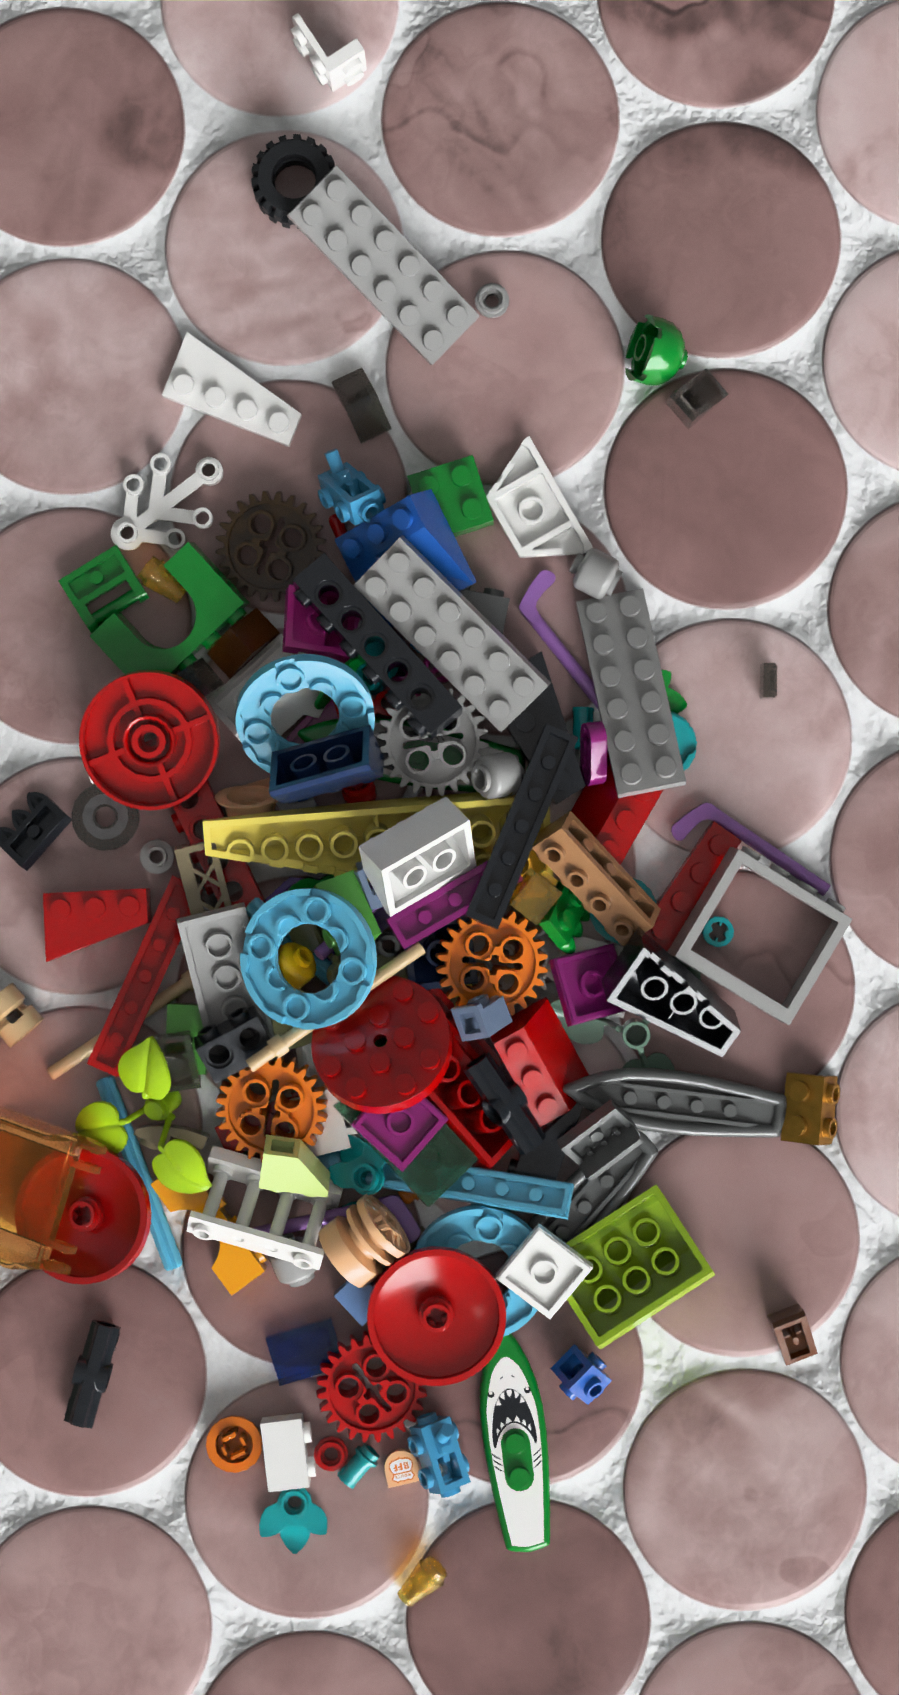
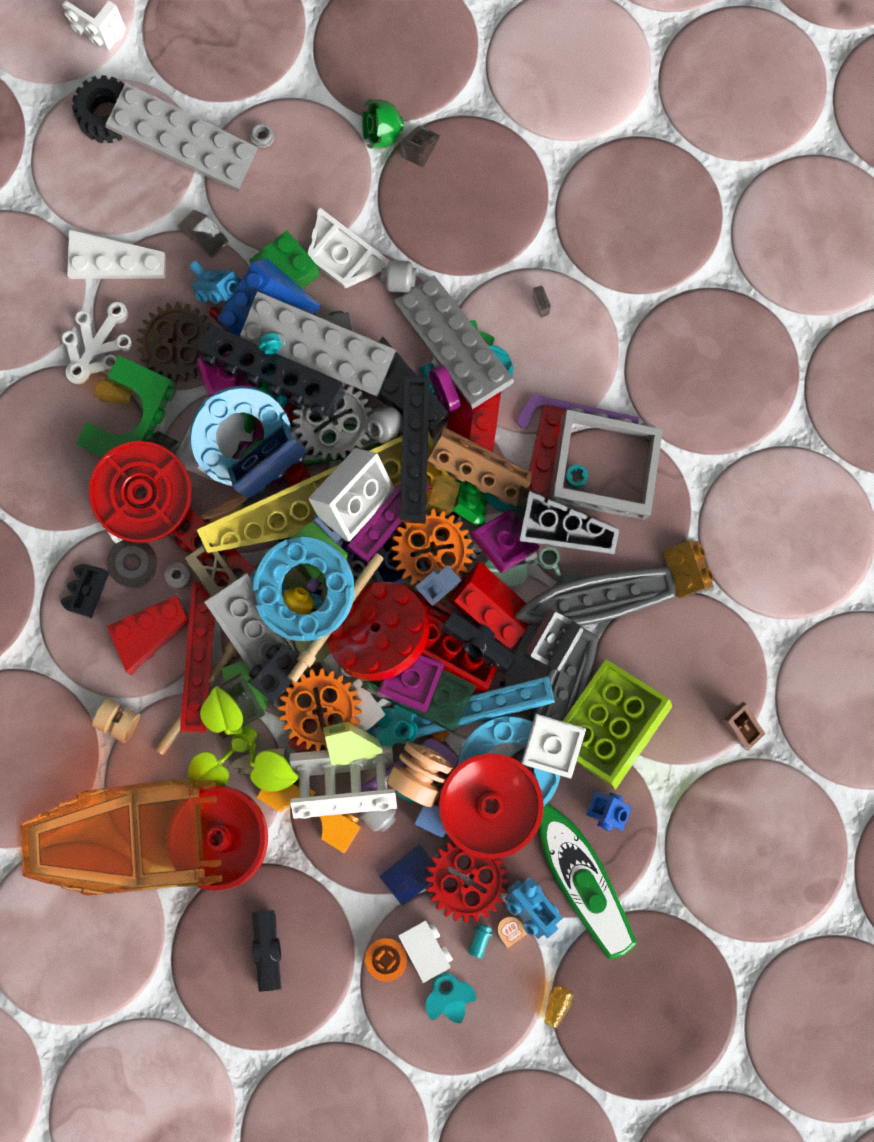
camera: 20 degrees left, 10 degrees down
(99, 578) = (69, 407): green plate -> none
(132, 1153) = (274, 827): medium azure axle -> none
(242, 642) = (180, 413): reddish brown slope -> none
(327, 1463) = (460, 948): red plate -> none
(389, 615) = (270, 343): none -> teal plate
(529, 611) = (364, 318): medium lavender piece -> none

